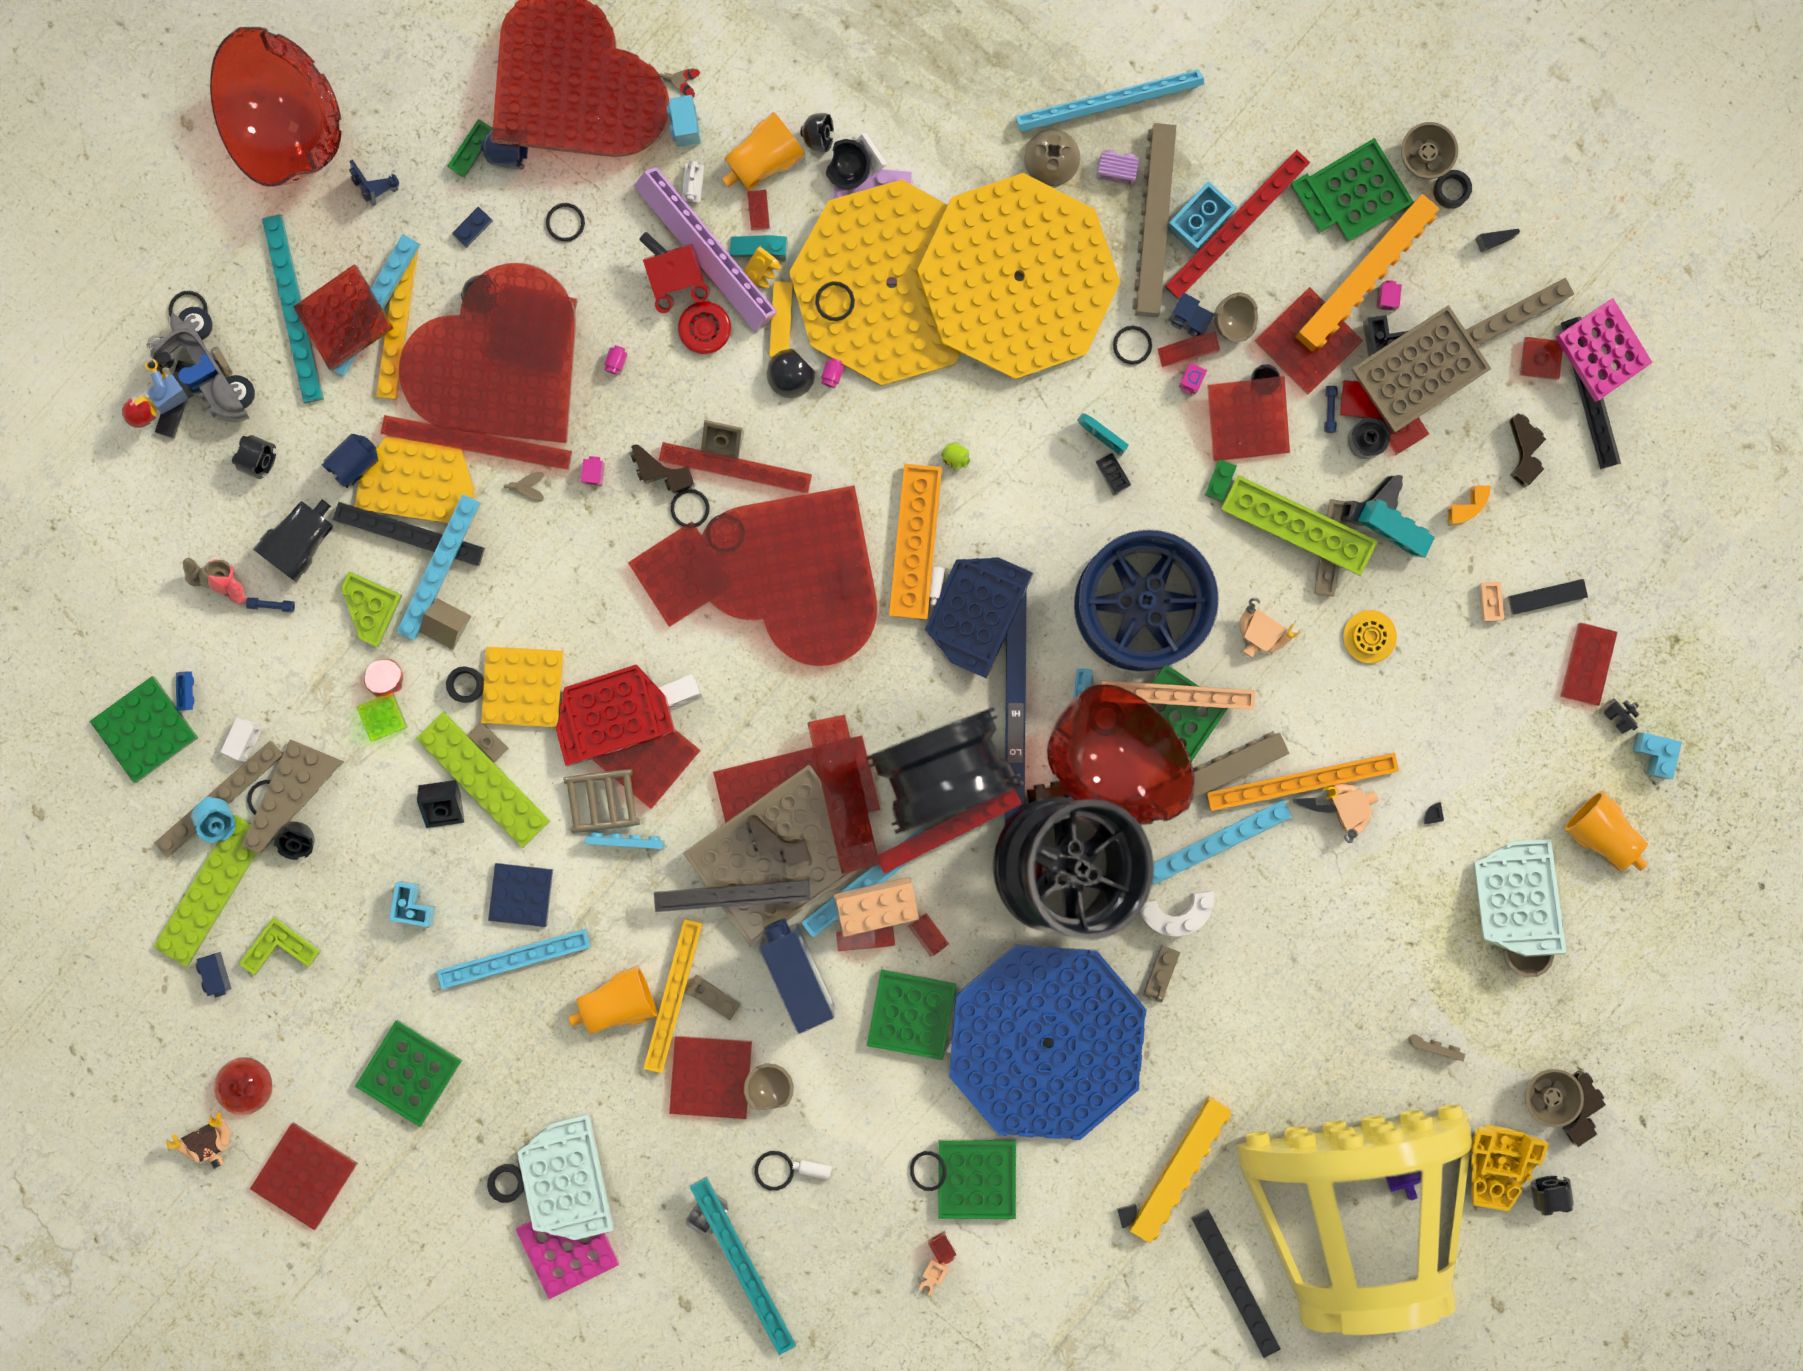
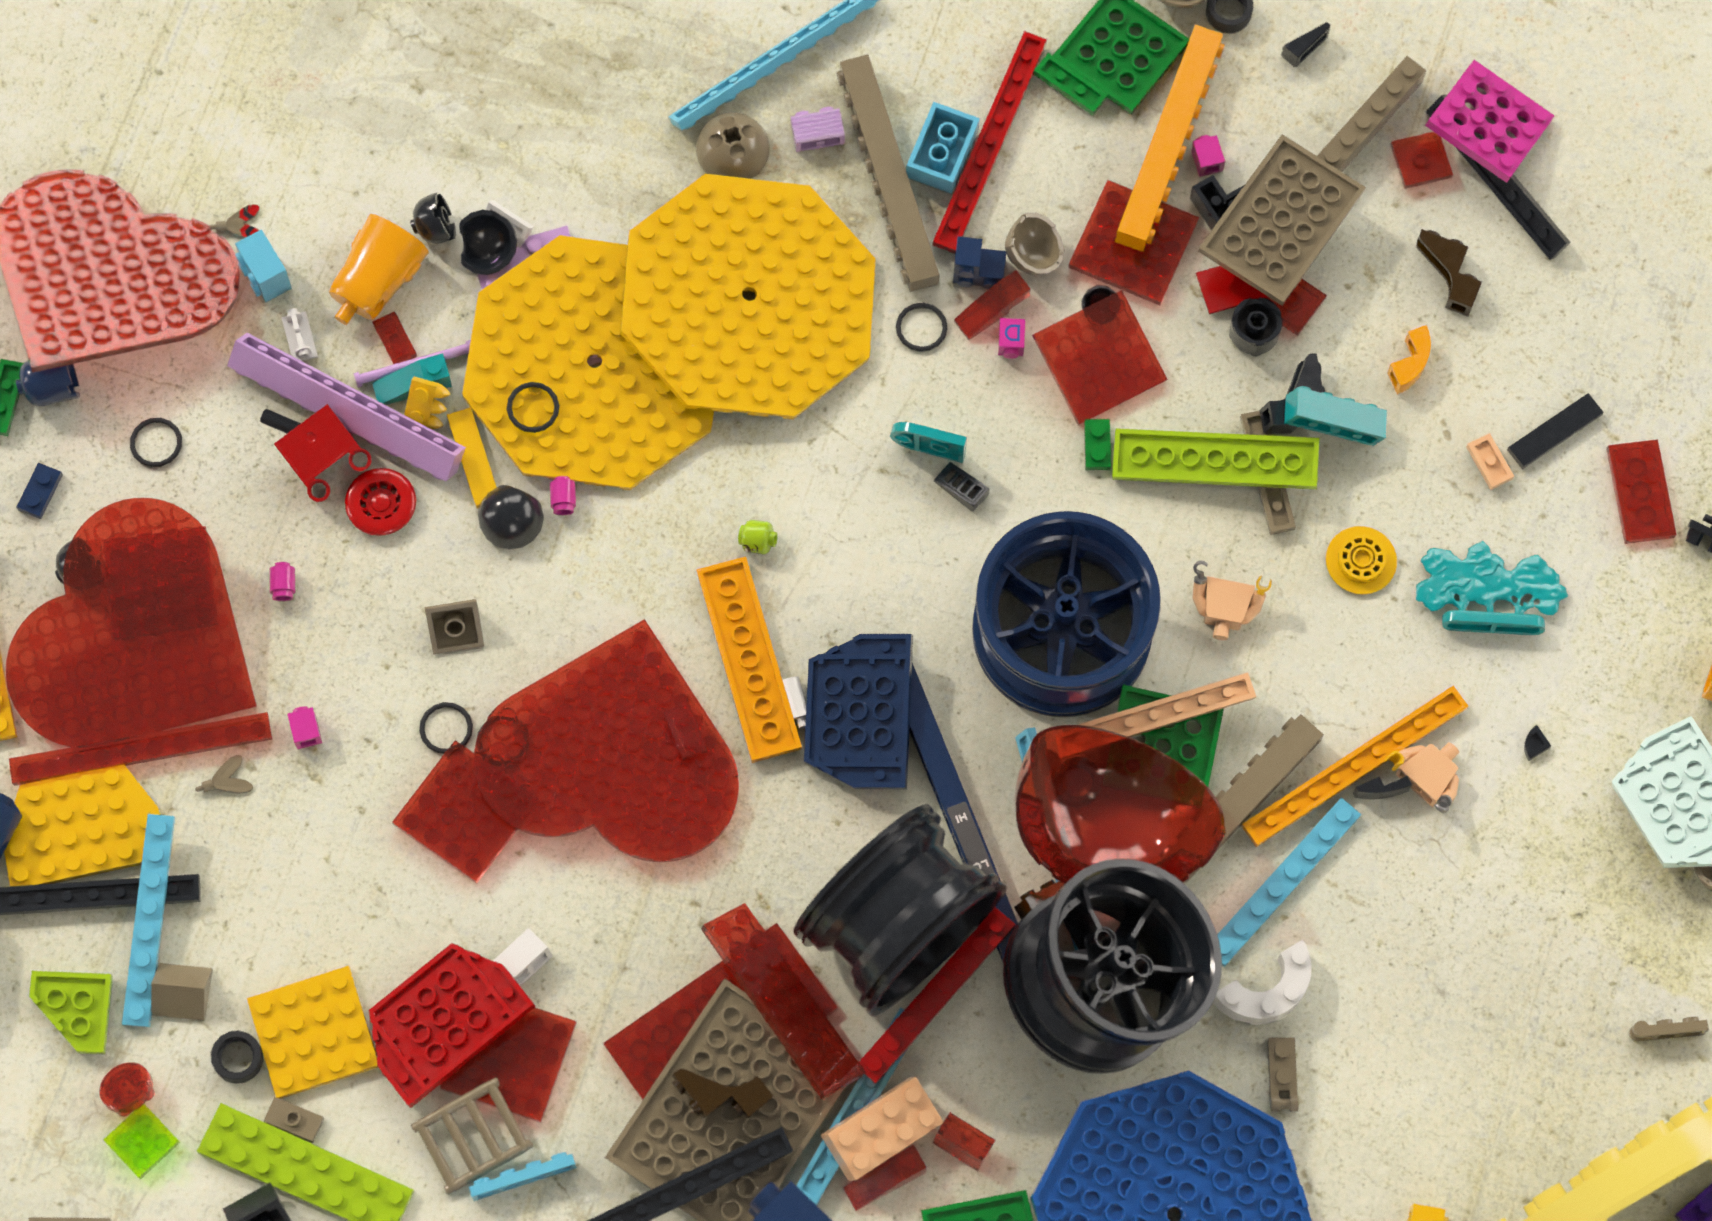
camera: 25 degrees left, 15 degrees down
(651, 470) = (380, 697): dark brown arch -> none
(735, 467) = (484, 655): clear red plate -> none
(753, 232) = (382, 372): none -> lavender bar
(1331, 392) = (1187, 292): dark blue bar -> none
(1449, 686) = (1485, 581): none -> teal plant

